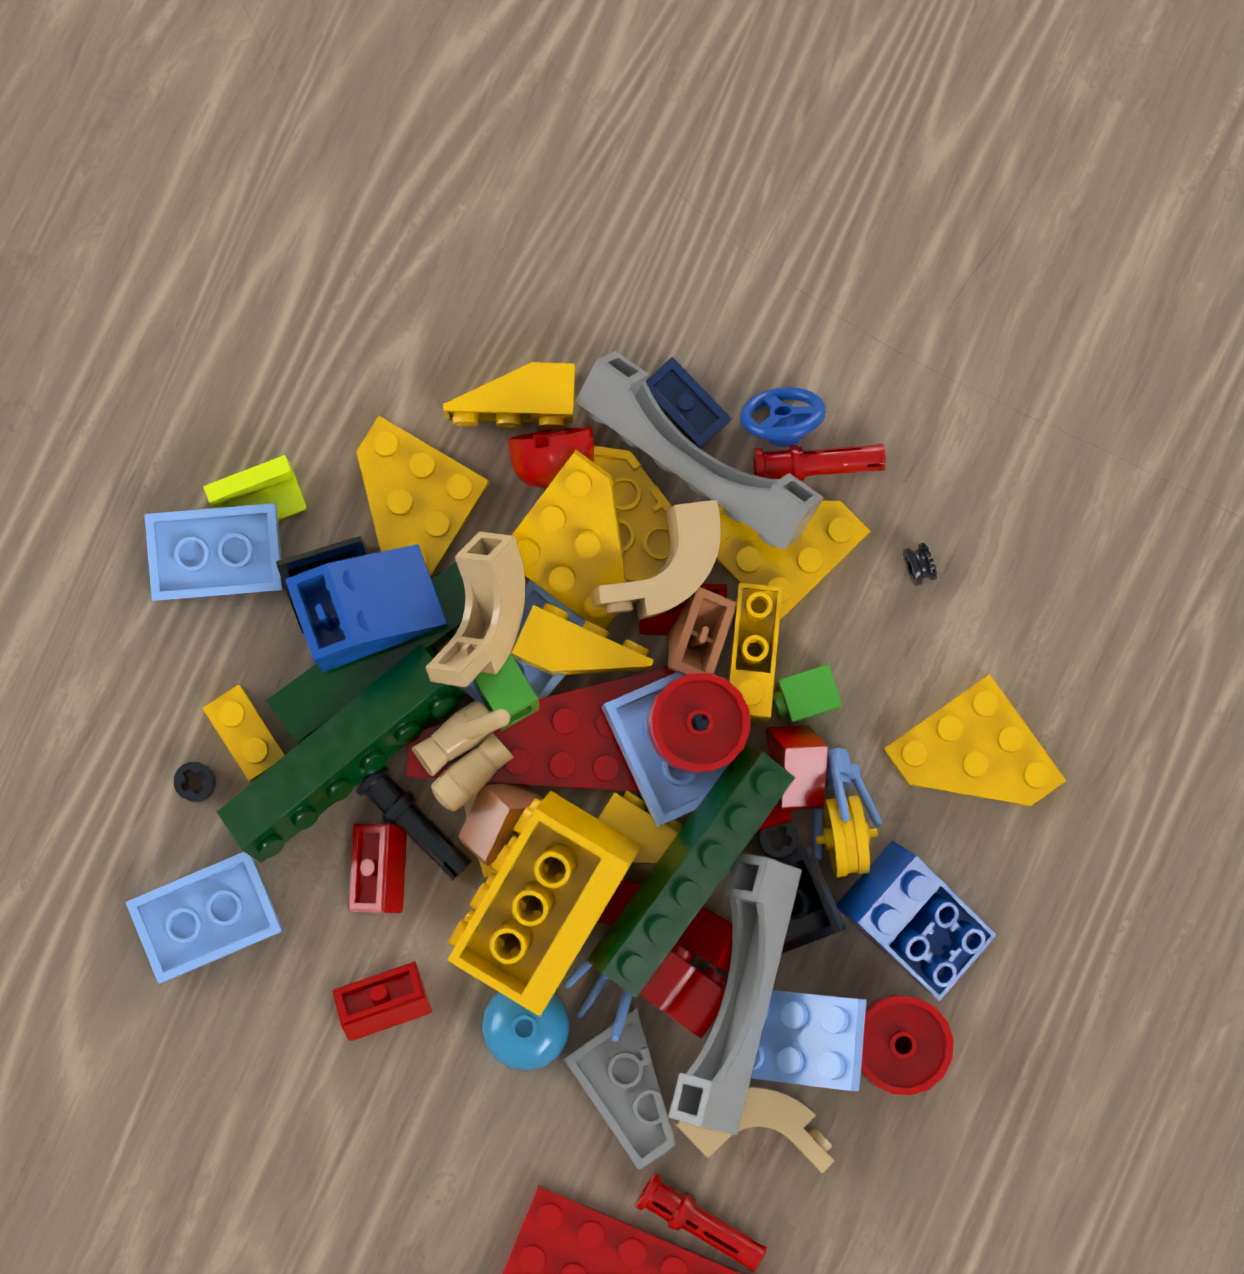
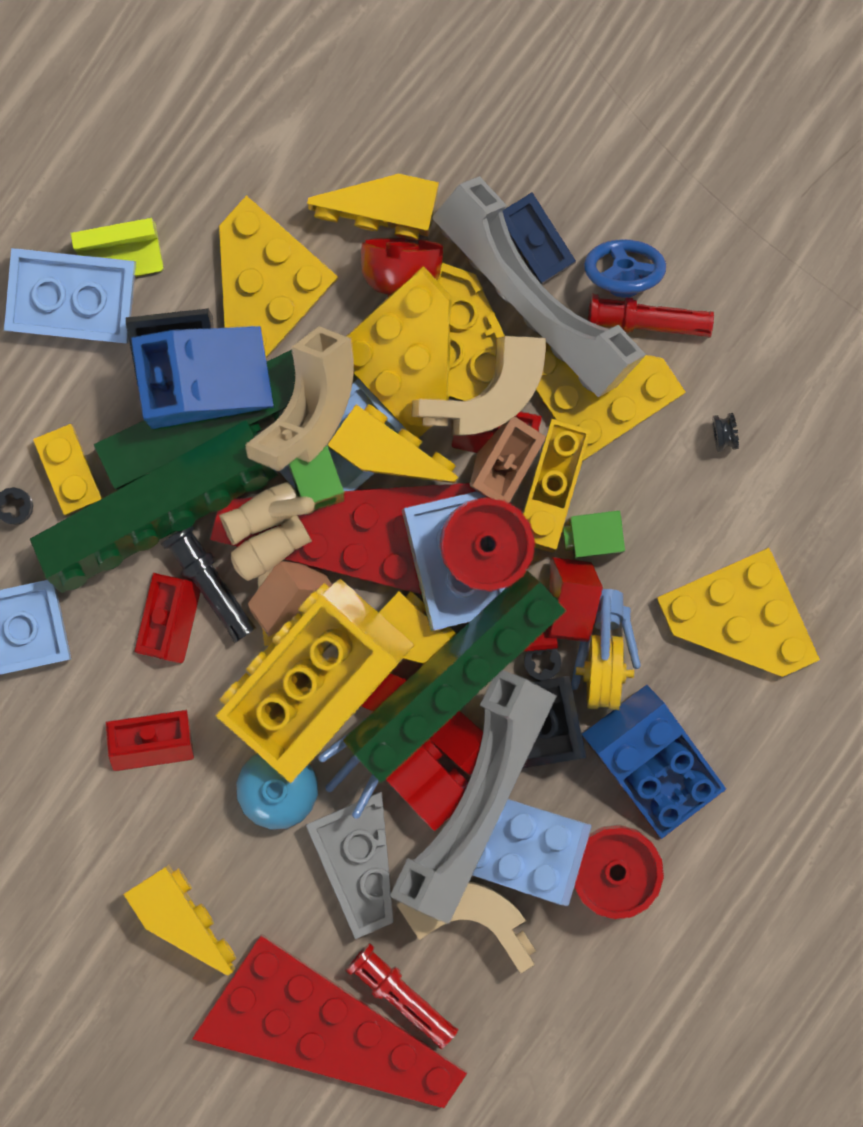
camera: 15 degrees right, 5 degrees up
(440, 1184) = (170, 914): none -> yellow slope

